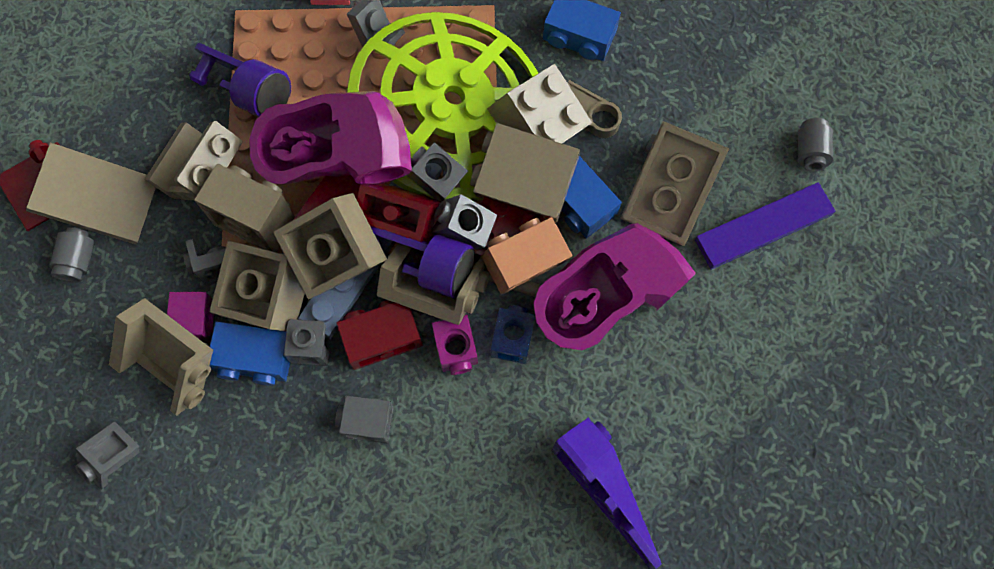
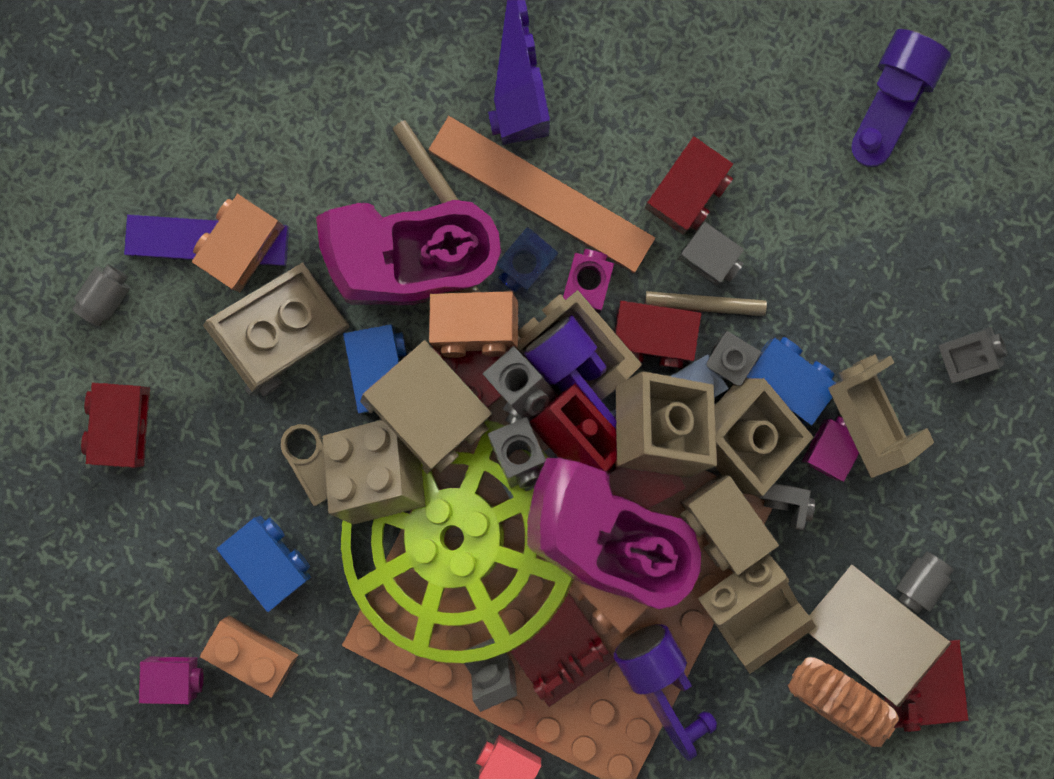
camera: 145 degrees left, 15 degrees up
(95, 129) = (843, 701): none -> nougat gear
(329, 65) = (562, 654): none -> dark red hinge
(351, 381) = (707, 303): none -> dark tan bar
(412, 465) = (689, 186): none -> dark red brick
(530, 397) = (541, 194): none -> nougat tile
(632, 370) = (424, 162): none -> dark tan bar
(742, 227) = (236, 242): none -> nougat brick
(743, 63) = (116, 425): none -> dark red brick

